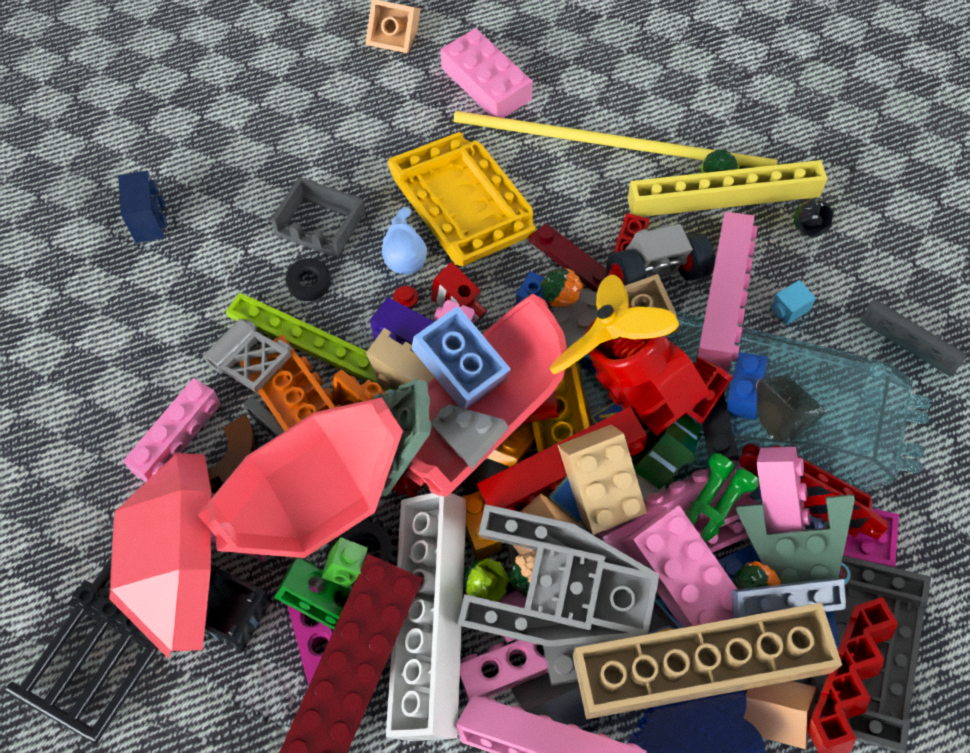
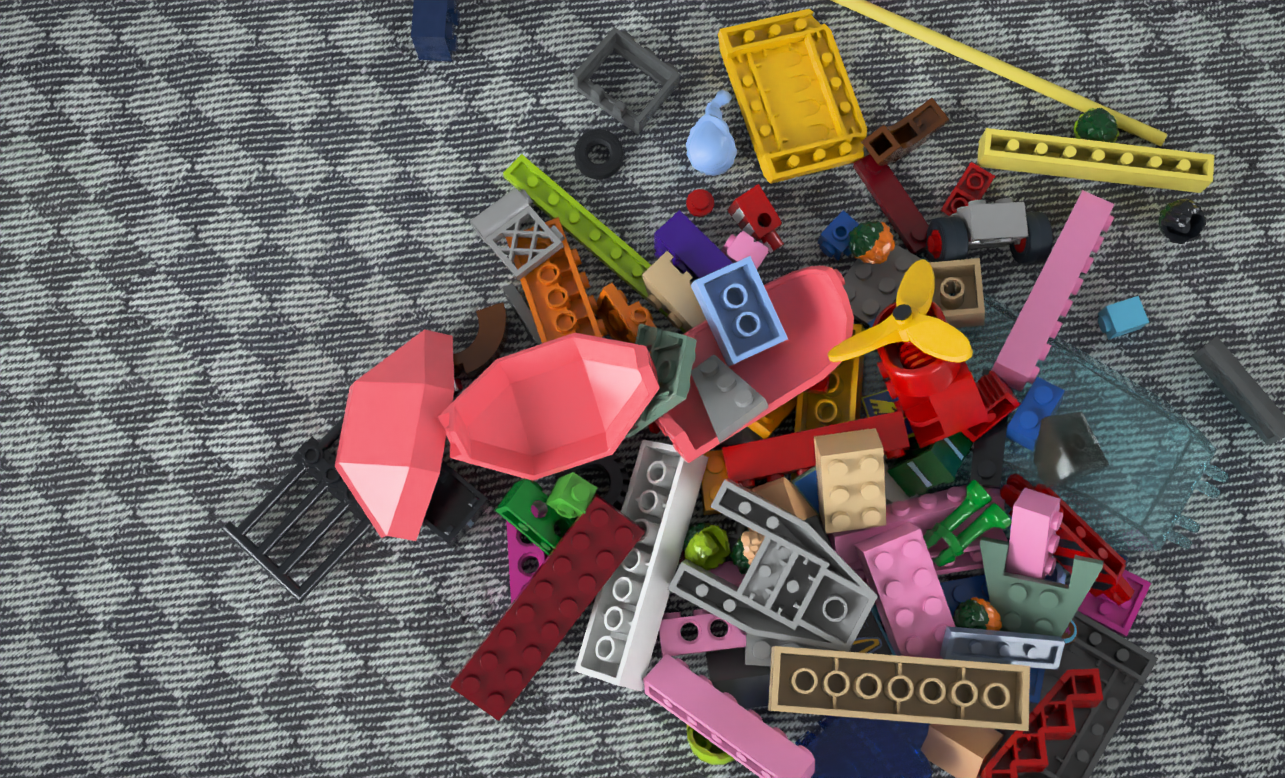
camera: 15 degrees right, 15 degrees up
(173, 429) = (425, 300): bright pink brick -> none
(567, 205) = (903, 137): none -> reddish brown arch

